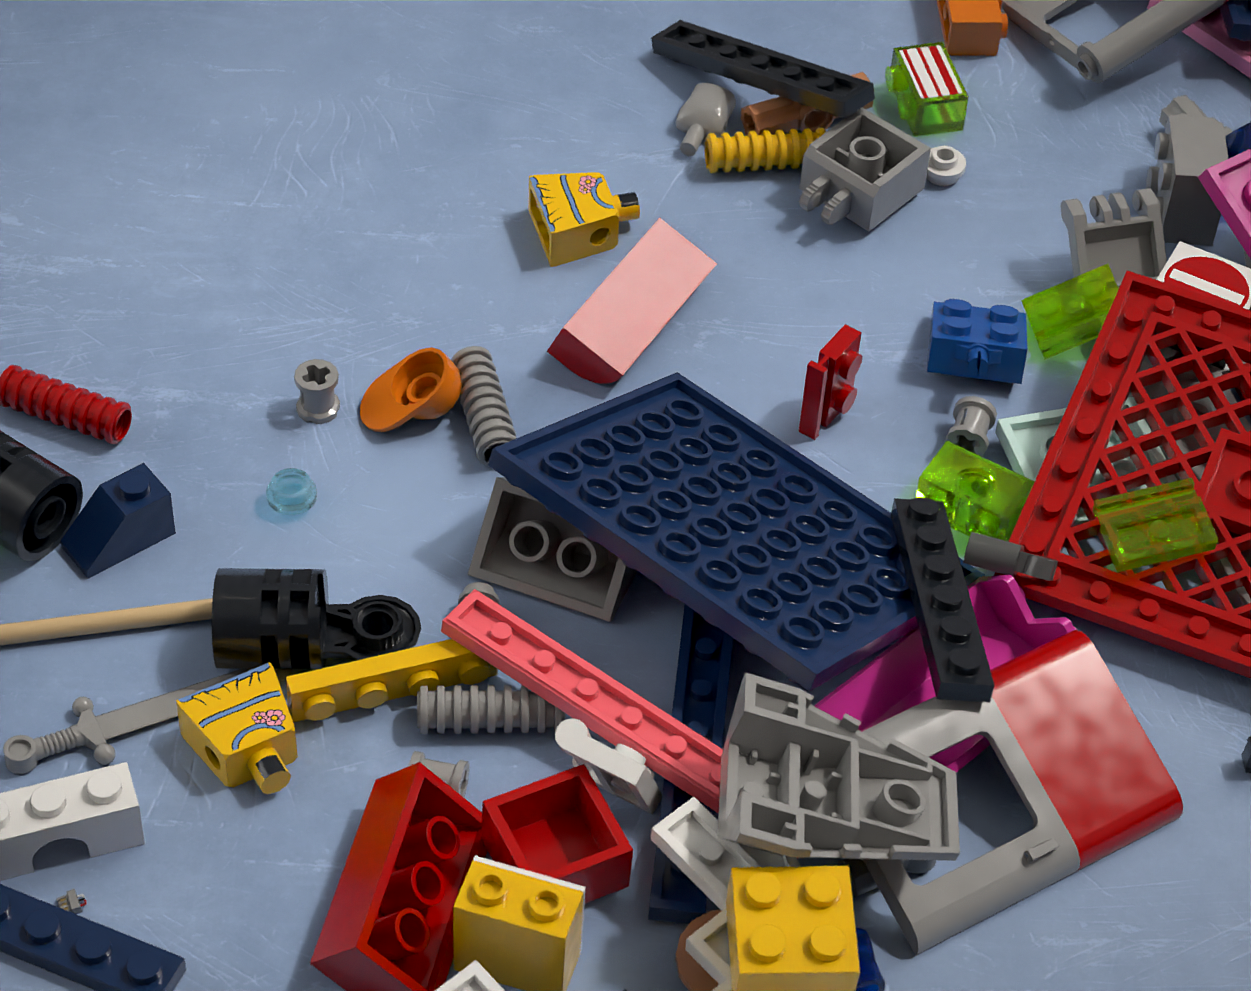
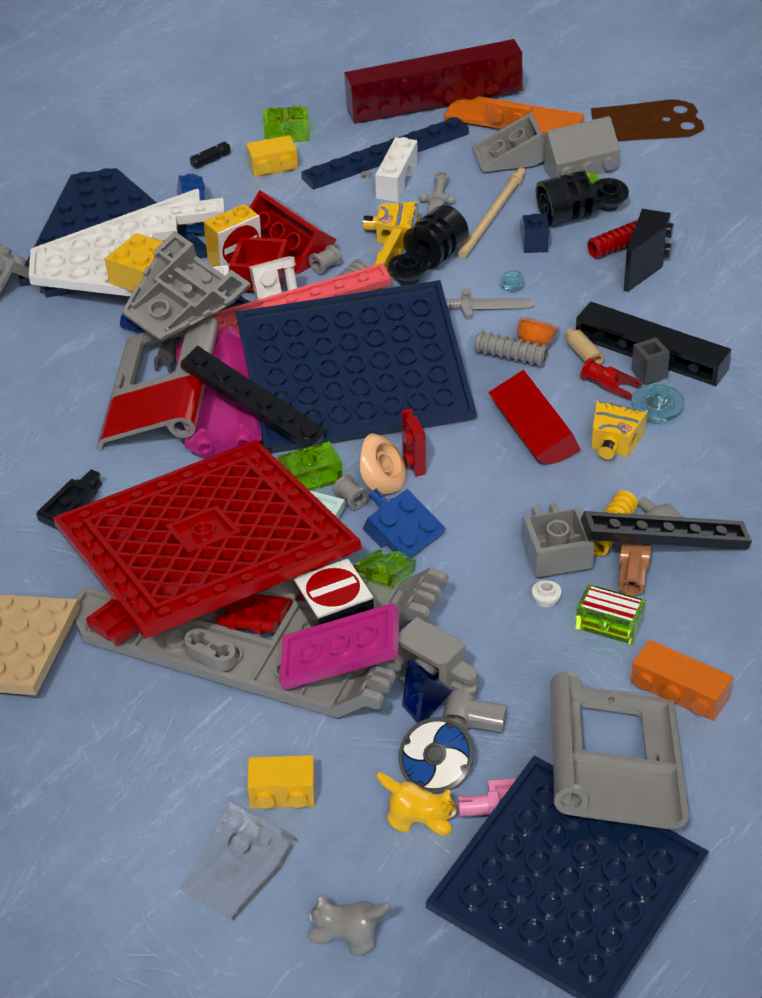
camera: 130 degrees right, 5 degrees down
(111, 328) = (647, 247): none -> black slope
(316, 385) = (563, 304): light grey bush -> none
(336, 256) = (688, 354): none -> black brick
(391, 526) = (466, 304): none -> light grey sword
(398, 224) = (650, 360): none -> dark grey brick
(405, 329) = (583, 346): none -> tan cylinder
(459, 276) = (608, 378): none -> red piece
(479, 196) = (660, 400): none -> clear light blue piece
(896, 412) = (382, 465): none -> light nougat hat
(1007, 558) = (253, 434): dark grey bar -> none
(1154, 524) = (215, 479): clear neon green plate -> none

